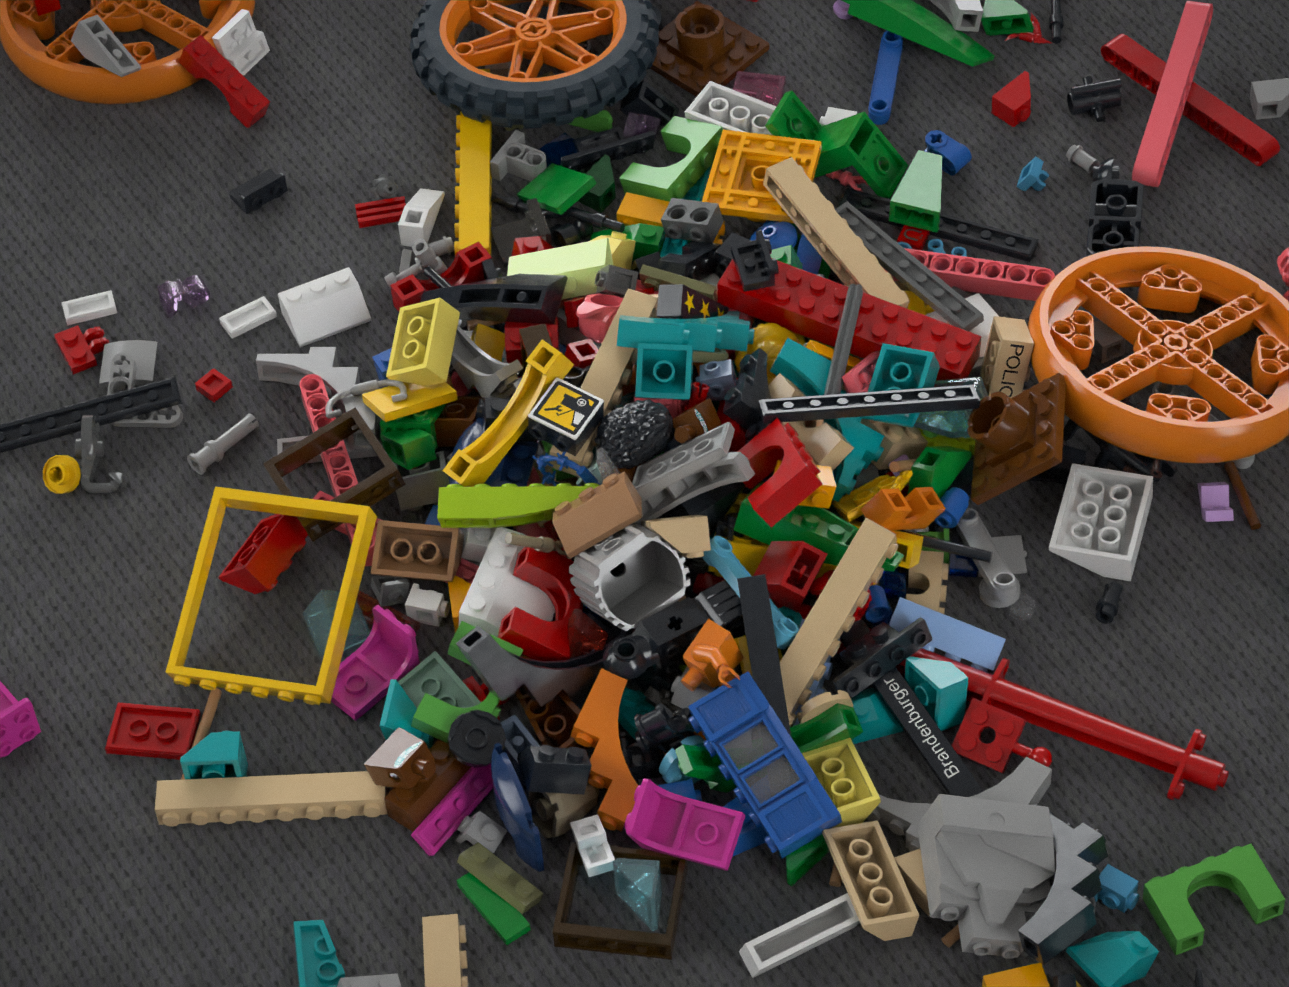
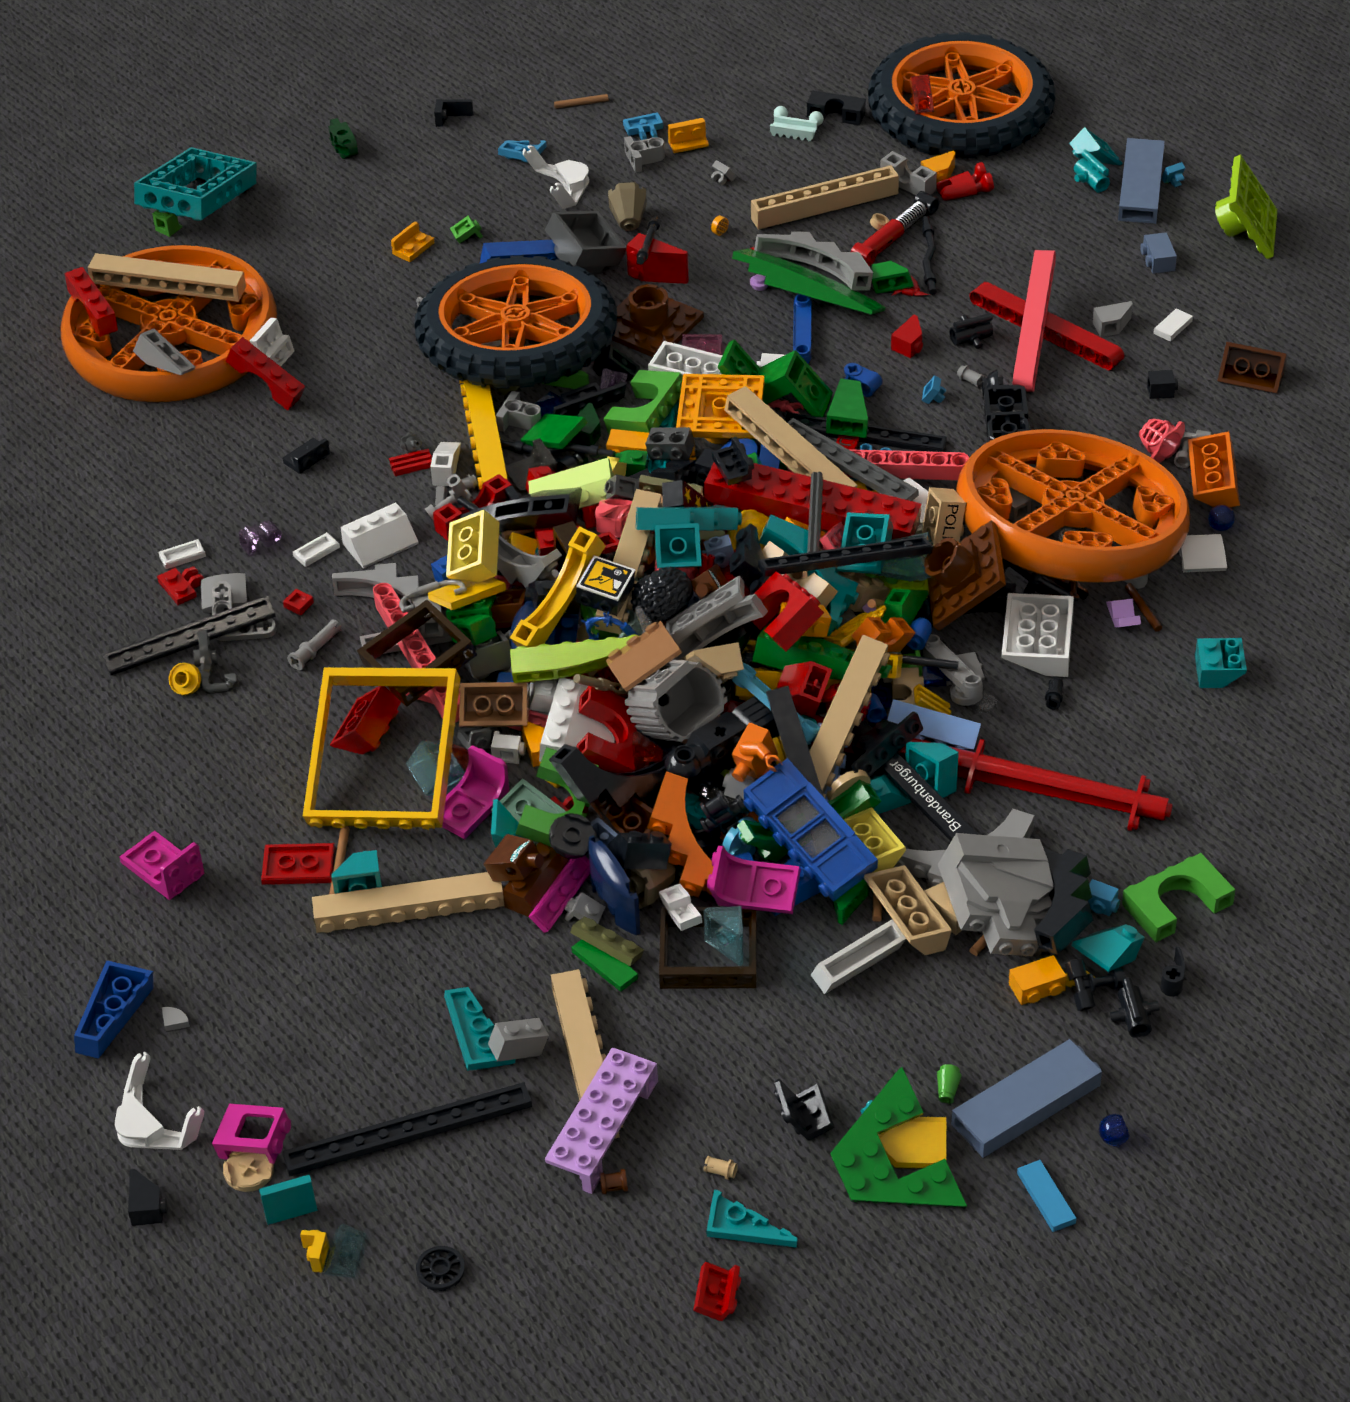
camera: 10 degrees left, 5 degrees down
(952, 601) = (929, 700): none -> yellow tile
(1008, 731) = (994, 791): red plate -> none

